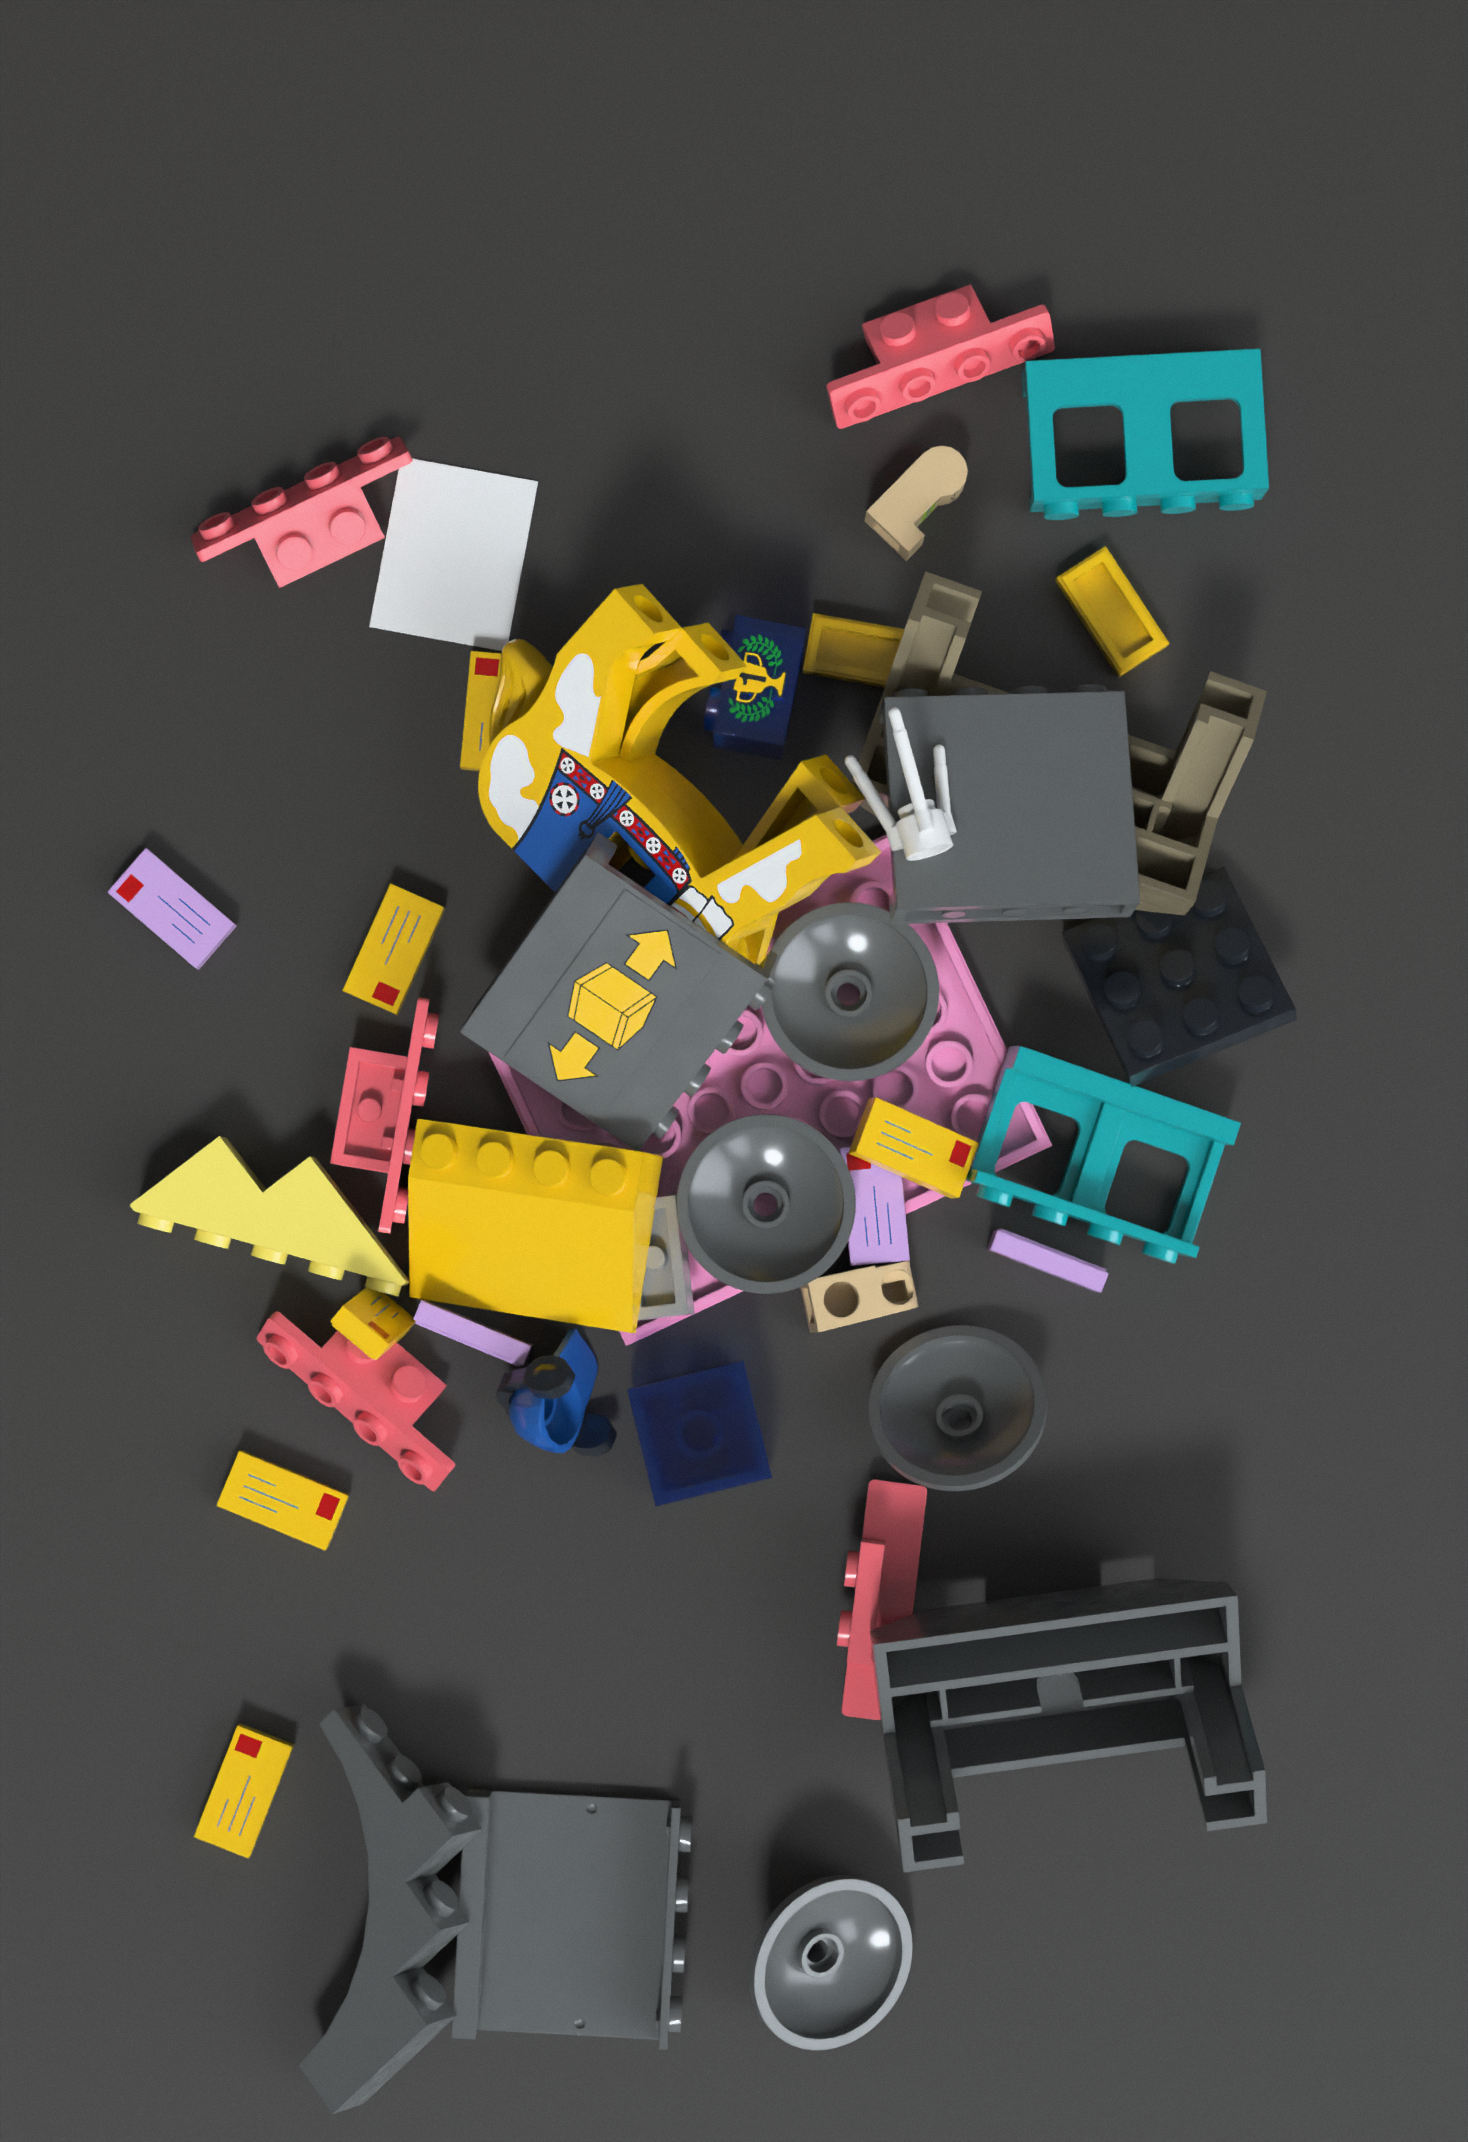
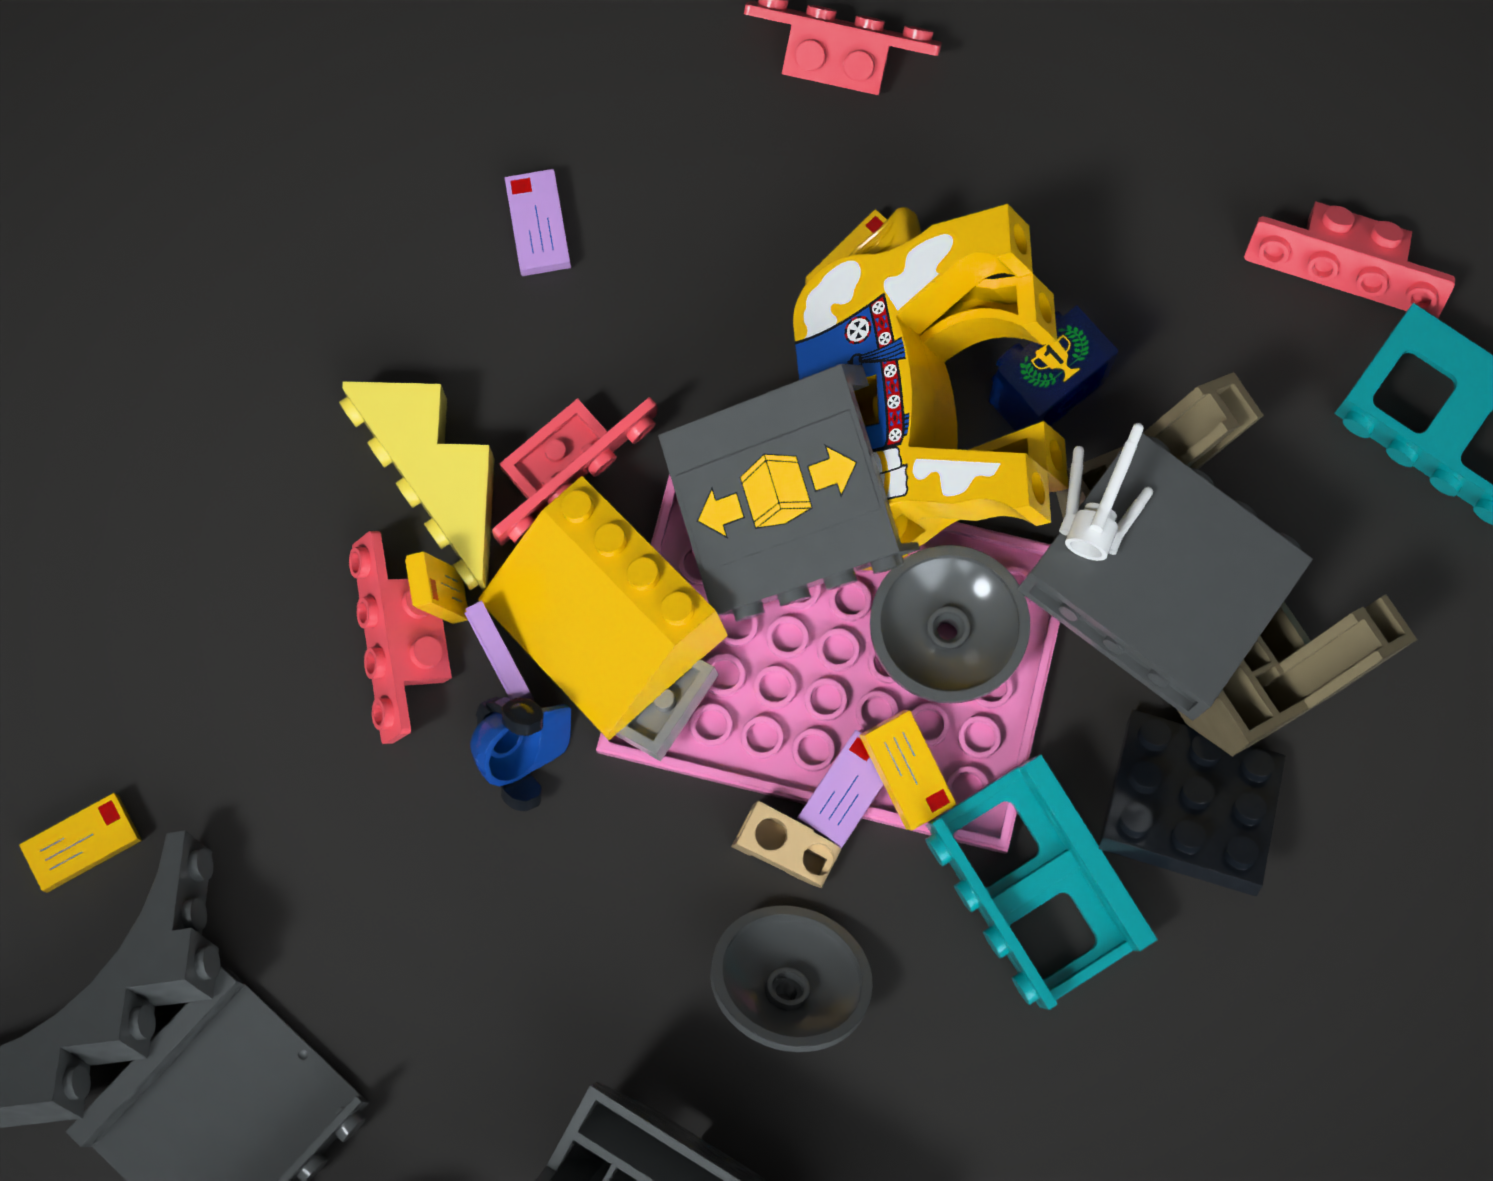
camera: 45 degrees right, 10 degrees down
(283, 1500) = (277, 666): yellow tile -> none
(394, 949) = (661, 362): yellow tile -> none
(453, 554) = (915, 141): white sticker -> none
(699, 1432) = (596, 846): clear blue brick -> none
(811, 1195) = (763, 686): dark grey dish -> none
(851, 650) = (1130, 400): yellow tile -> none
(883, 1583) = (639, 1057): coral bracket -> none
(929, 482) = (1263, 337): tan leg -> none
(1047, 1260) = (939, 928): lavender tile -> none
(1112, 611) = (1341, 522): yellow tile -> none

